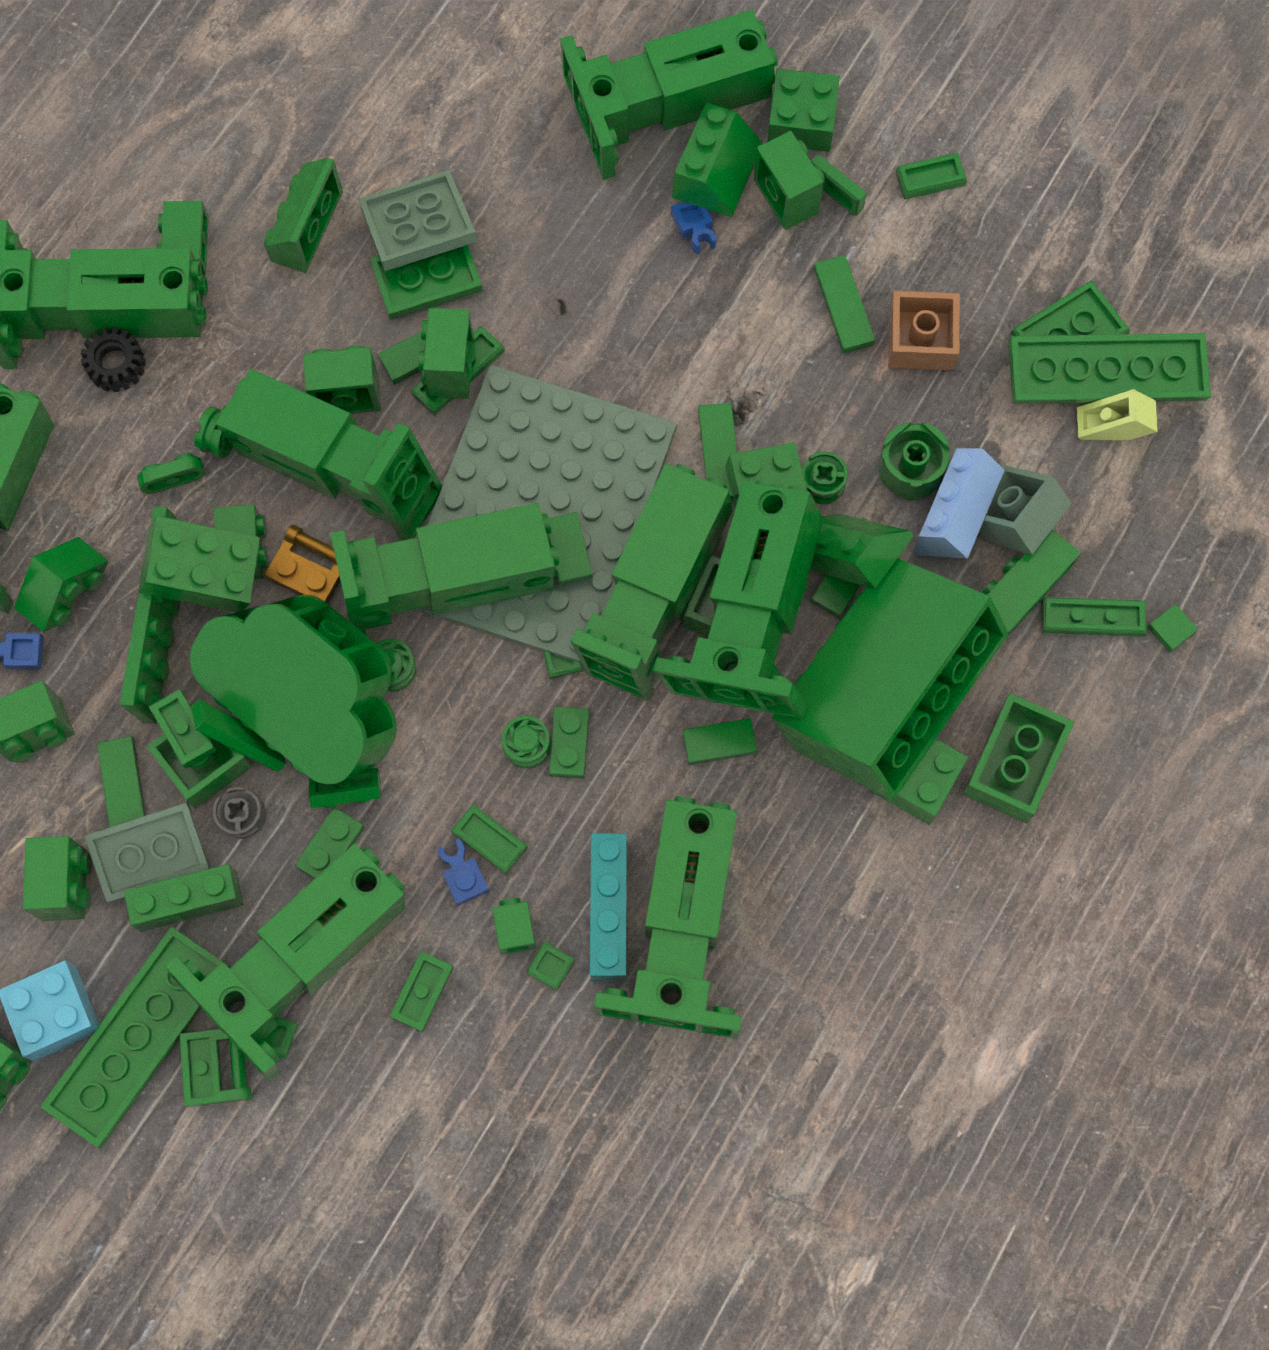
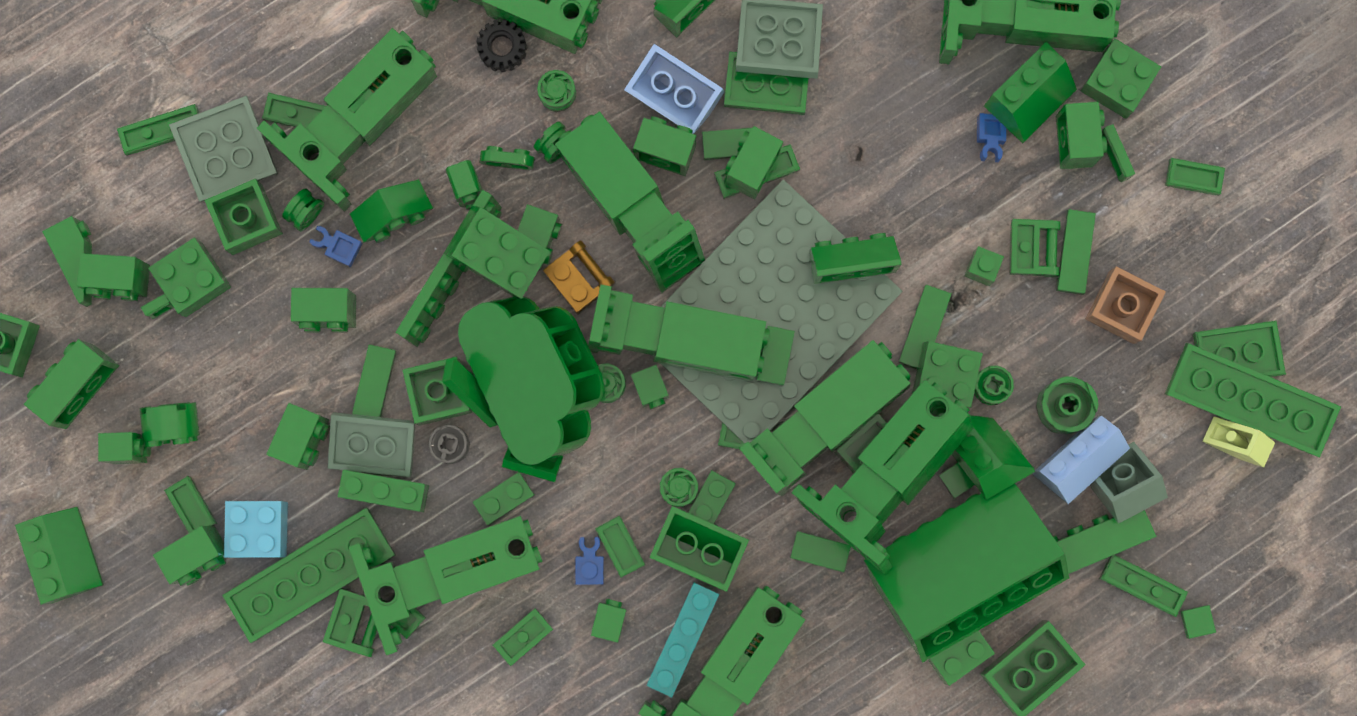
camera: 25 degrees right, 10 degrees up
(129, 513) = (464, 183): none -> green brick
(178, 725) = (431, 367): green plate -> none
(196, 380) = (556, 90): none -> green wheel
(325, 316) = (674, 89): none -> light blue slope
(442, 646) = (650, 387): none -> green brick
(550, 966) = (622, 660): green tile -> none
(579, 796) = (699, 548): none -> green slope
(607, 407) = (854, 258): none -> green slope
(752, 357) = (984, 266): none -> green brick
(788, 321) = (1025, 247): none -> green plate

